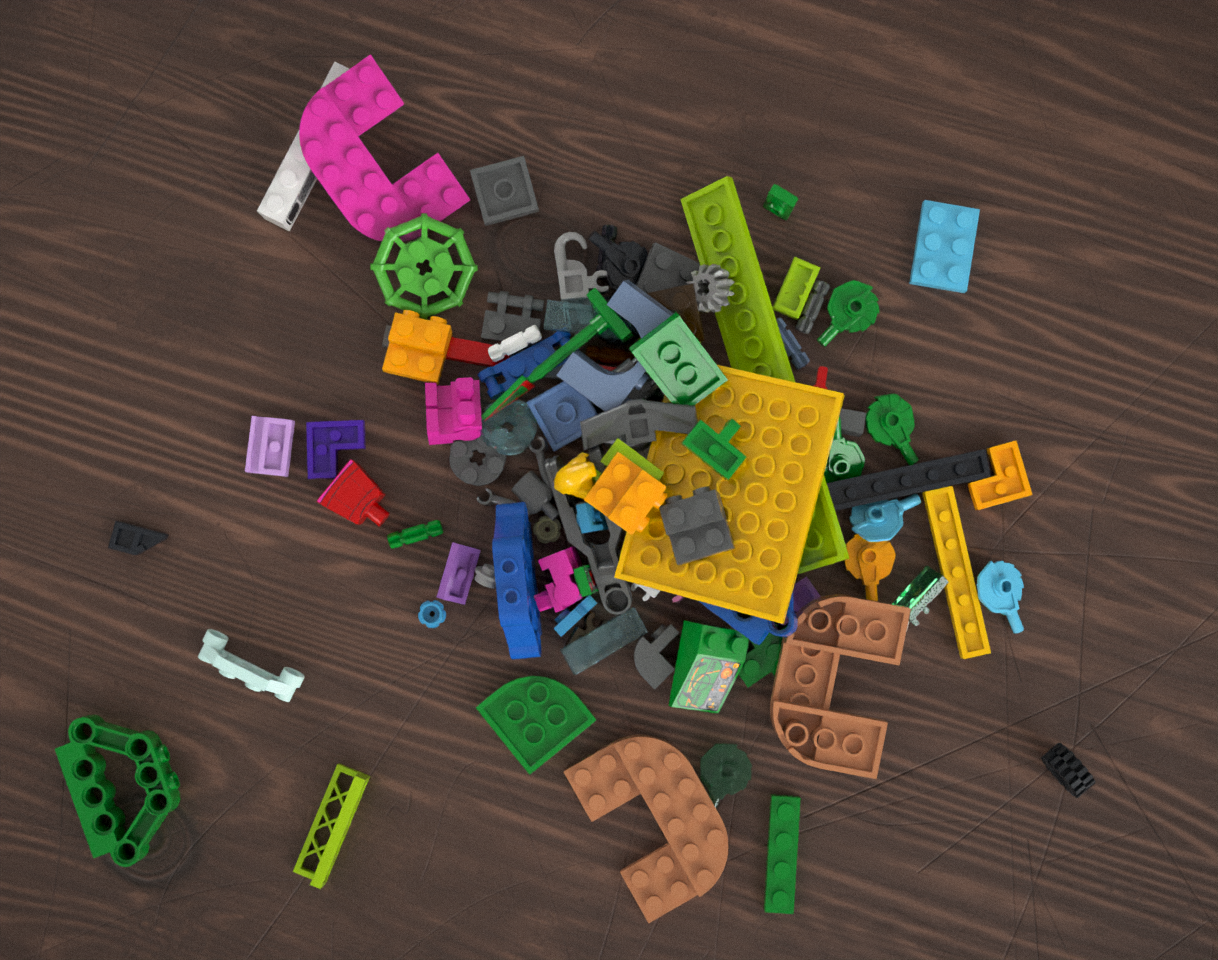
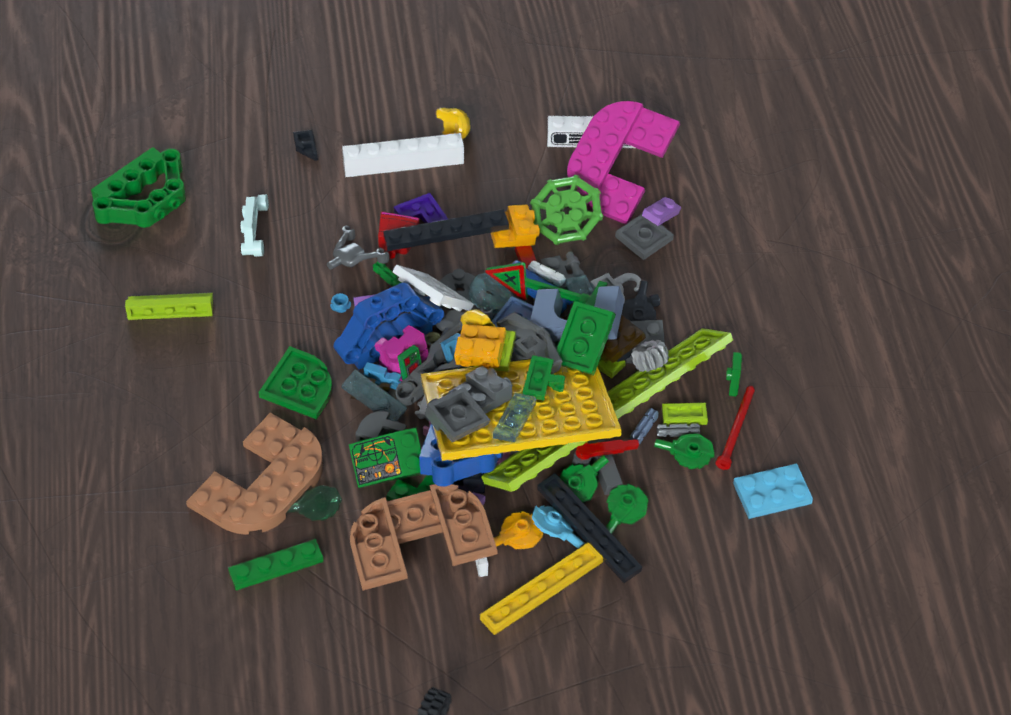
camera: 65 degrees right, 35 degrees down
(201, 333) = (454, 121): none -> yellow hair
(223, 425) = (403, 155): none -> white brick
(269, 446) = (403, 183): lavender plate -> none
(361, 568) = (353, 253): none -> dark grey piece
(392, 436) = (445, 230): none -> black plate
(453, 411) = (480, 255): dark pink hips -> none
(478, 149) = (661, 211): none -> medium lavender plate
(491, 502) = (438, 292): none -> white plate
(734, 579) = (456, 414): none -> dark grey plate
(762, 508) = (514, 417): none -> clear light blue tile
(848, 246) = (724, 461): none -> red bar
(921, 592) = (521, 573): clear green plate -> none
(1000, 590) = (545, 619): medium azure piece -> none
(1009, 478) = (627, 594): light orange plate -> none

